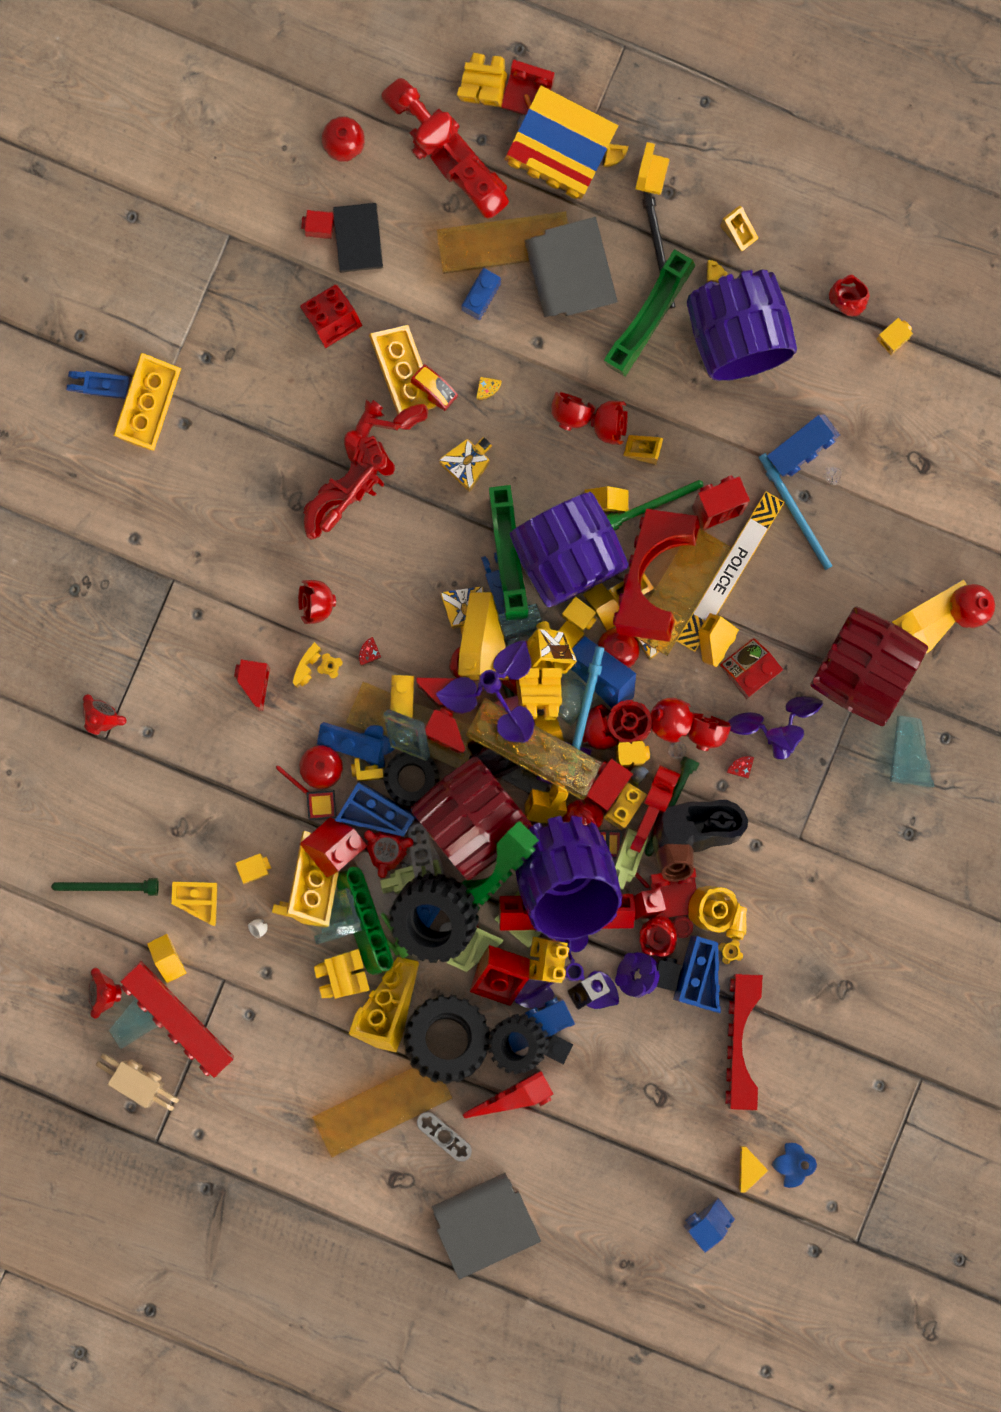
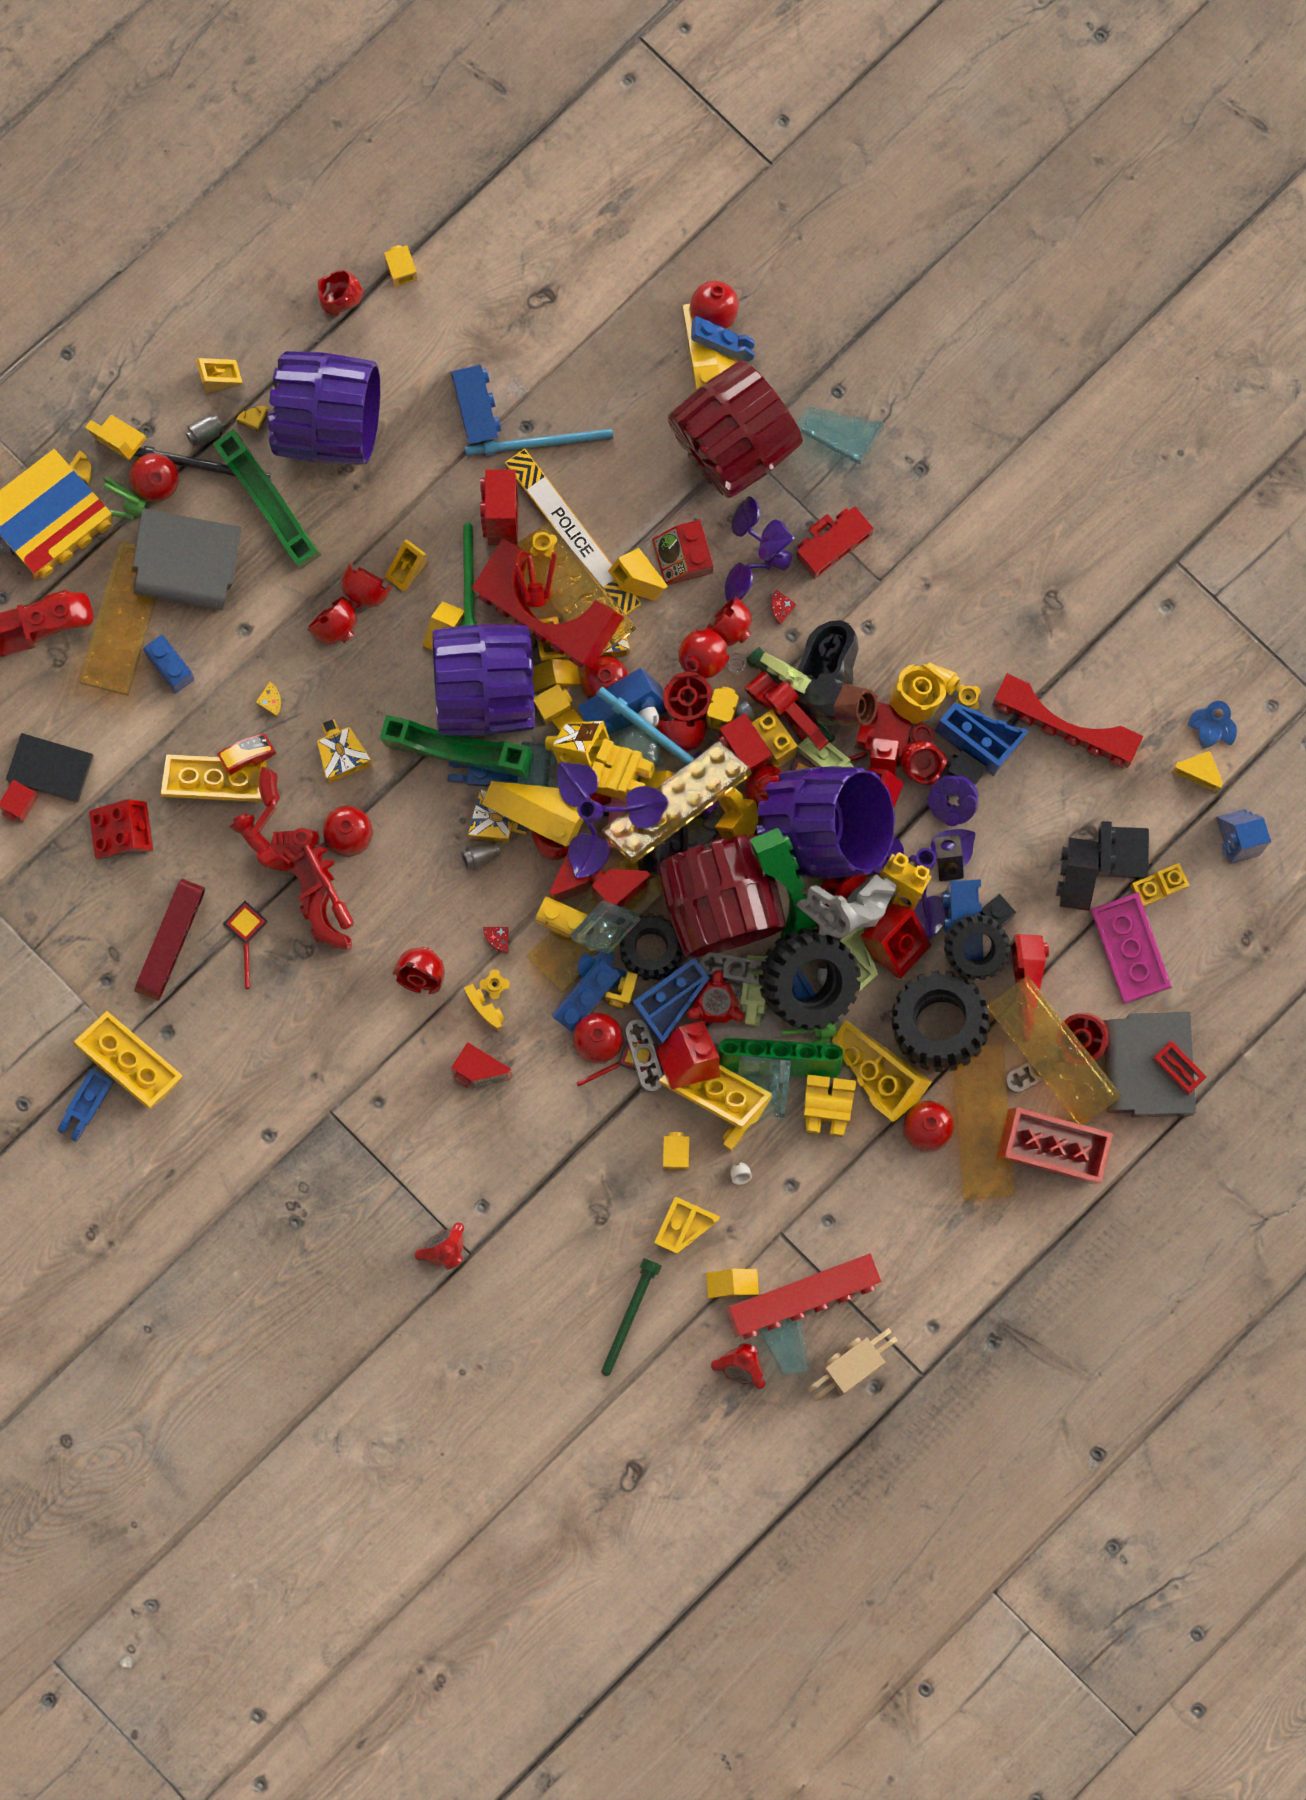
camera: 65 degrees left, 5 degrees down
(258, 392) = (169, 939): none -> dark red beam
(296, 447) = (245, 924): none -> piece
(305, 816) = (645, 1035): none -> light grey beam
(360, 1064) = (928, 1126): none -> red cylinder
(382, 1174) = (1054, 1145): none -> red brick
(406, 495) = (347, 831): none -> red cylinder
(430, 609) = (479, 855): none -> flat silver cone
(460, 1142) = (1053, 1051): none -> clear yellow plate
(482, 1161) = (1090, 1032): none -> red cylinder
(497, 1233) = (1163, 1052): none -> red tile
(506, 936) = (862, 908): none -> light grey hips
(576, 1171) = (1131, 948): none -> dark pink tile
(599, 697) = (650, 715): none -> white hinge
(603, 208) = (132, 504): none -> bright green plant
(618, 1102) = (1079, 873): none -> black brick
(630, 215) = (154, 477): none -> red cylinder
(639, 1174) = (1161, 884): none -> yellow slope
(654, 1132) = (1122, 851): none -> black bracket
(662, 563) = (536, 594): none -> red plant
(683, 794) = (785, 672): none -> yellowish green hinge
(687, 238) = (204, 430): none -> flat silver brick
(711, 546) = (543, 538): none -> yellow plate
(821, 793) = (827, 549): none -> red piece
(945, 624) = (722, 340): none -> blue hinge

